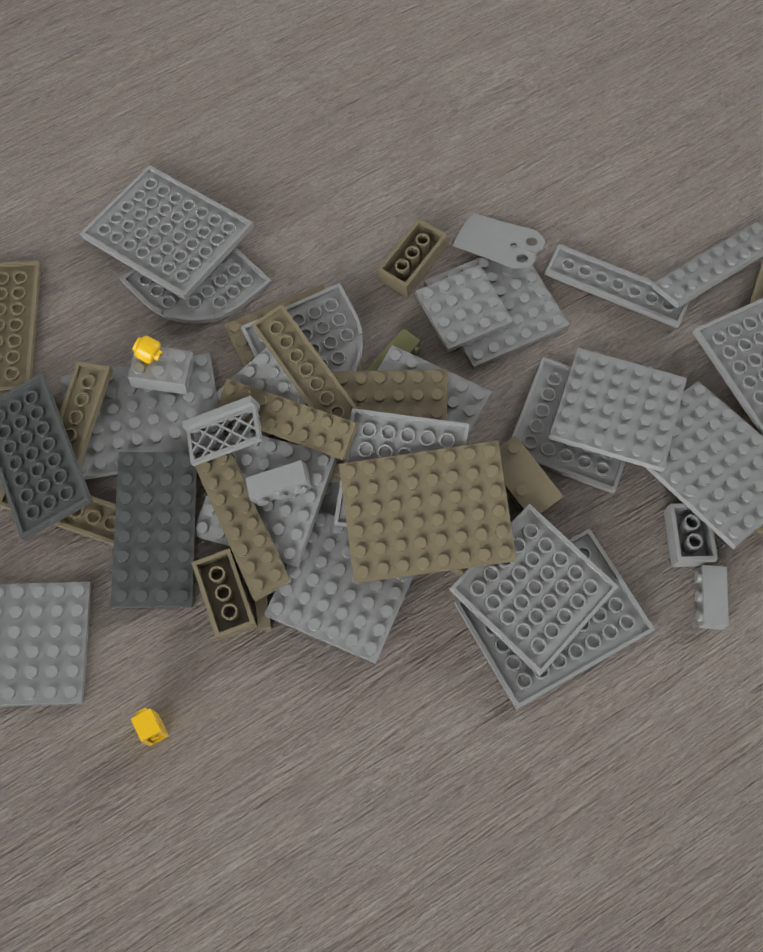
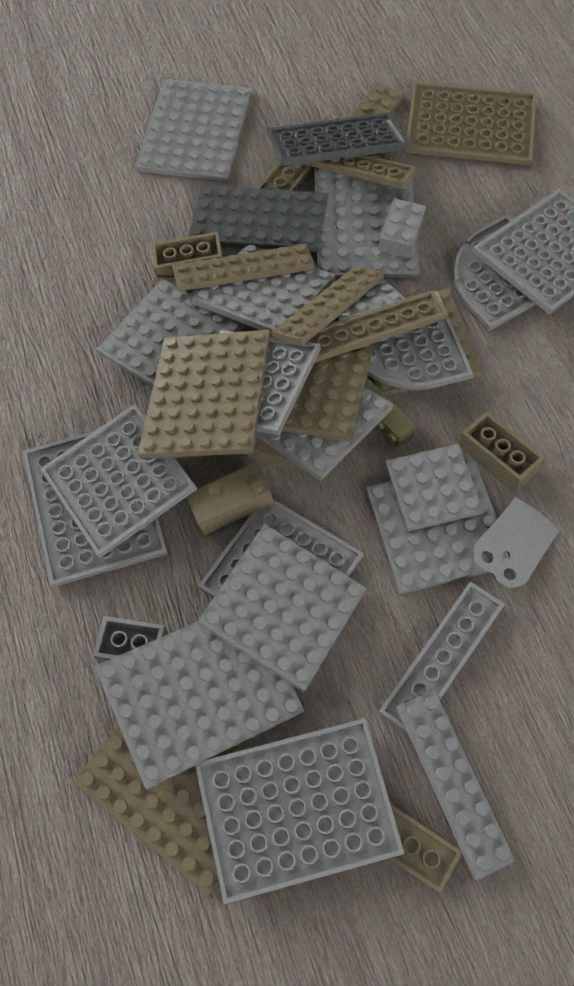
camera: 105 degrees right, 5 degrees down
(147, 349) = (413, 206): yellow head -> none
(149, 726) = (98, 198): yellow brick -> none
(221, 417) = (339, 259): light grey fence -> none
(278, 483) = (264, 288): light grey brick -> none
(712, 597) = (63, 649): light grey brick -> none

